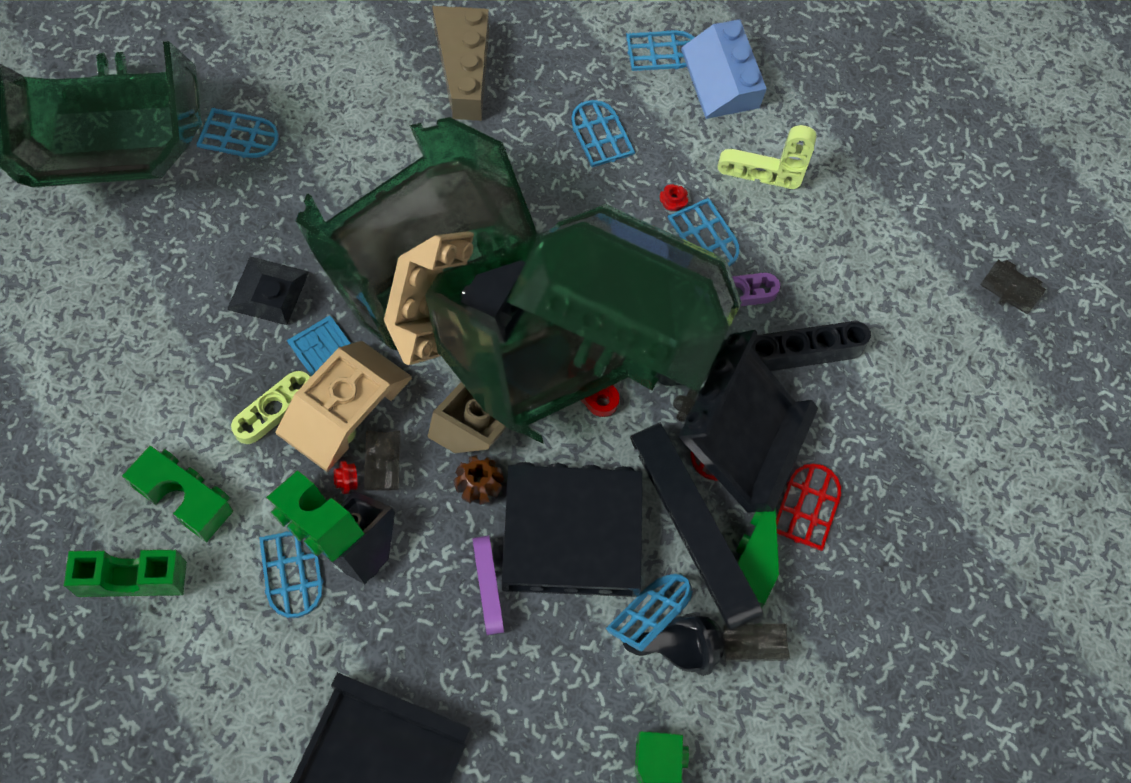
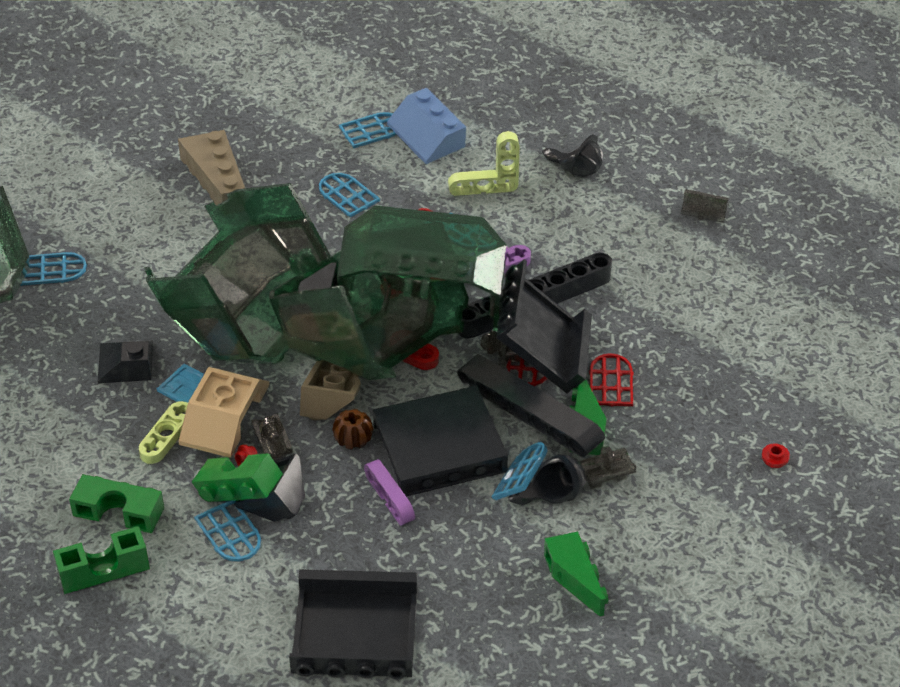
camera: 15 degrees left, 20 degrees down
(407, 307) = (254, 303): tan slope -> none
(886, 174) = (580, 162): none -> black piece
(959, 693) = (771, 459): none -> red plate

